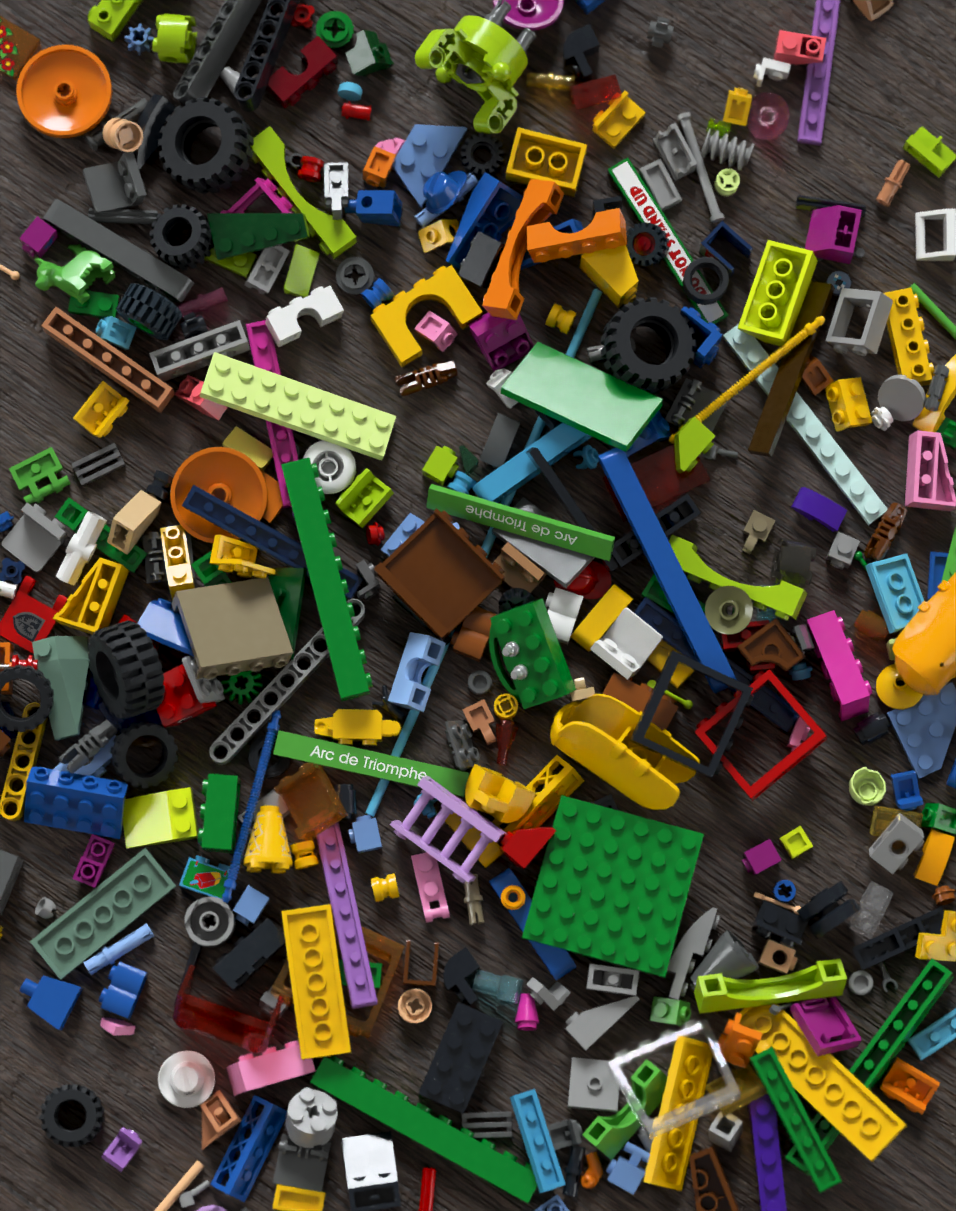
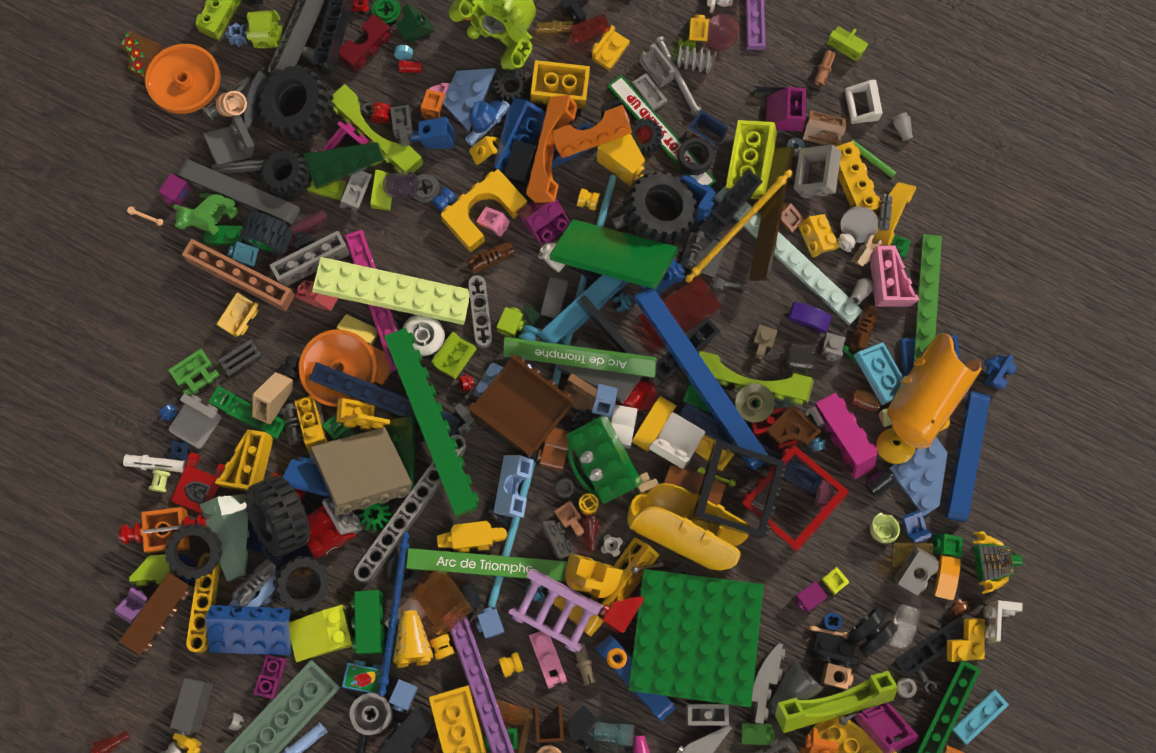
camera: 10 degrees left, 5 degrees down
(81, 548) = (232, 424): white piece -> none
(321, 305) = (400, 212): white arch -> none
(325, 269) = (400, 184): none -> wheel
(404, 445) = (480, 311): none -> light grey beam
(525, 754) = (611, 540): none -> white plate
(543, 582) = (604, 400): none -> medium blue brick
(551, 794) = (635, 570): none -> flat silver hinge
(553, 997) = (660, 735): light grey bracket -> none
(690, 442) = (702, 279): lime slope -> none
(729, 177) = (699, 79): yellowish green wheel -> none
(739, 352) = (730, 205): none -> black slope
(879, 264) = (824, 129): none -> medium nougat bracket
(892, 481) = (861, 290): none -> light grey cone
(901, 436) = (864, 253): none -> tan plate

